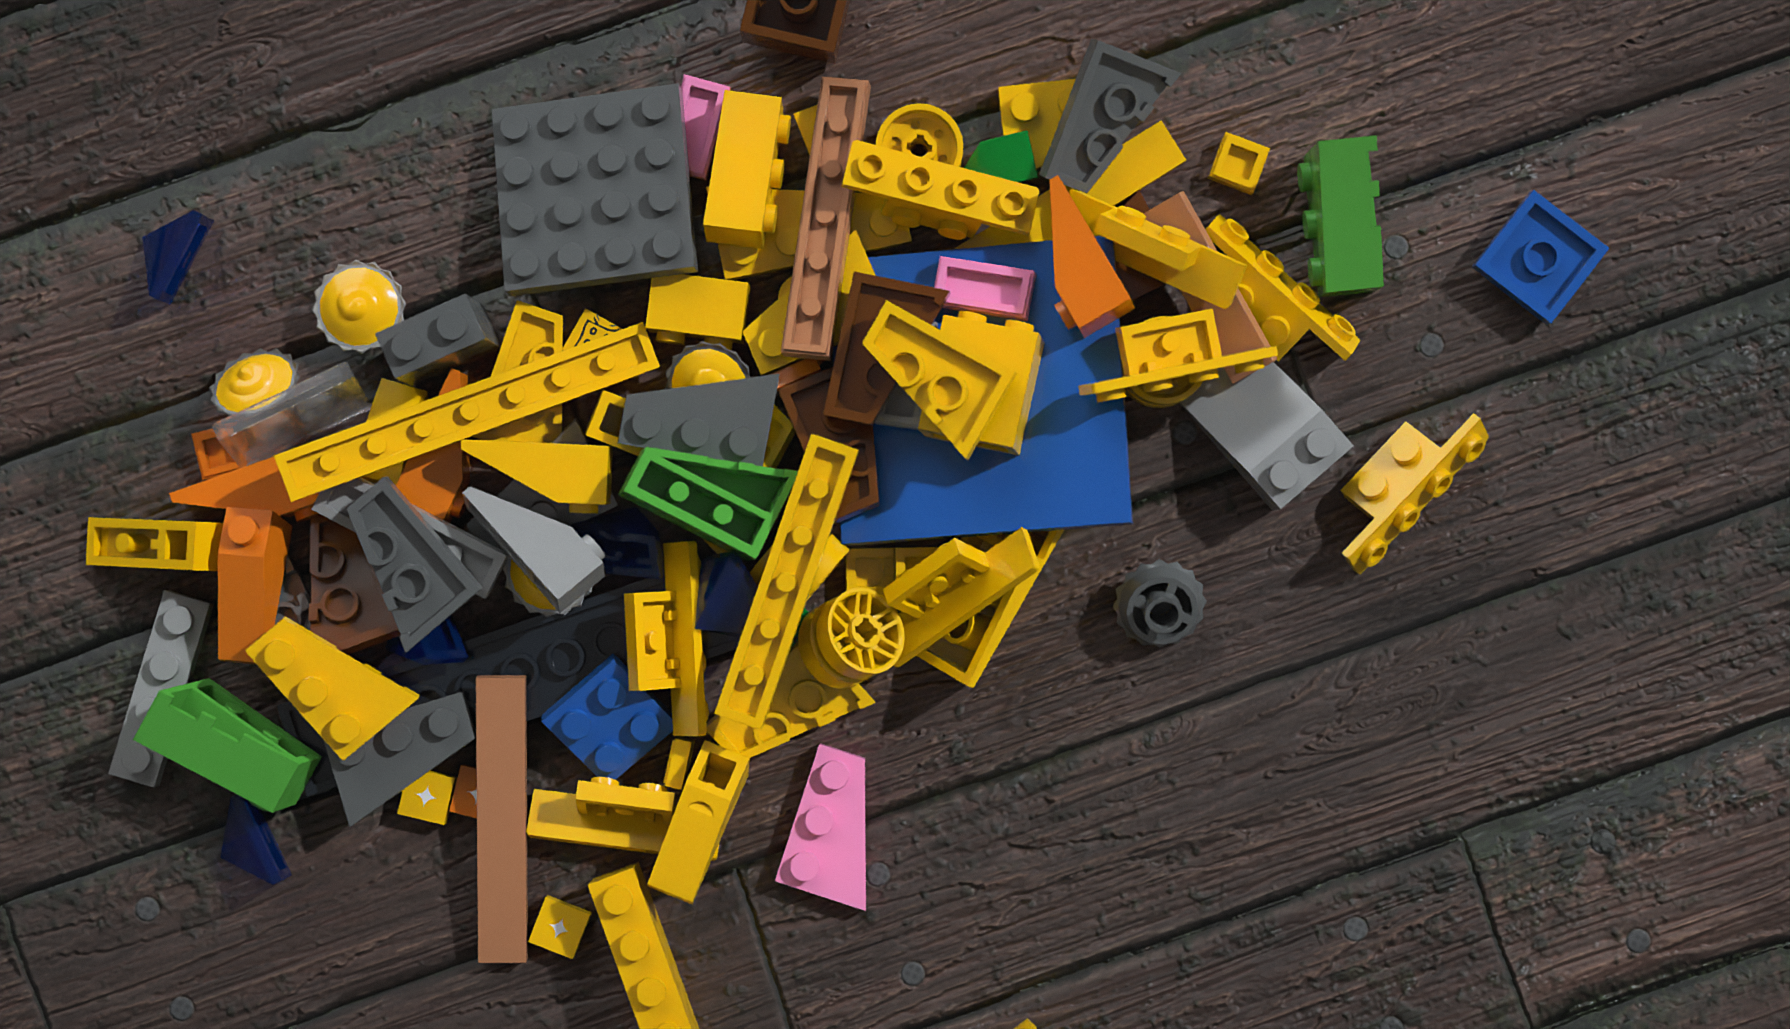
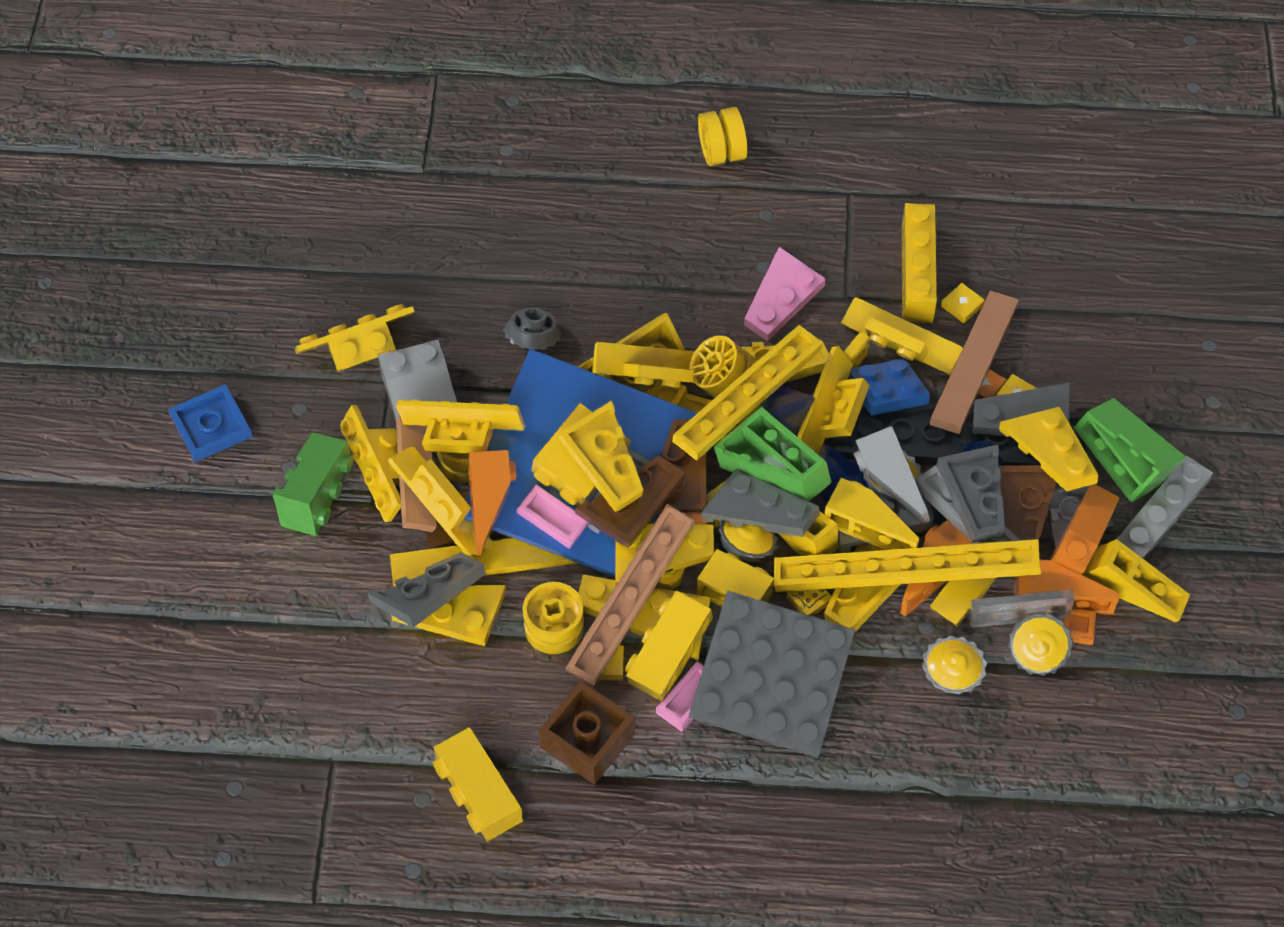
camera: 155 degrees left, 30 degrees down
(171, 252) = (1069, 751): clear blue slope -> none
(251, 844) = (1134, 398): clear blue slope -> none
(438, 340) = (908, 614): dark grey brick -> none
(699, 821) = (854, 310): yellow slope -> none
(938, 193) = (552, 576): yellow bracket -> none
(1005, 158) = (504, 593): green slope -> none
(1238, 163) = (358, 544): yellow tile -> none

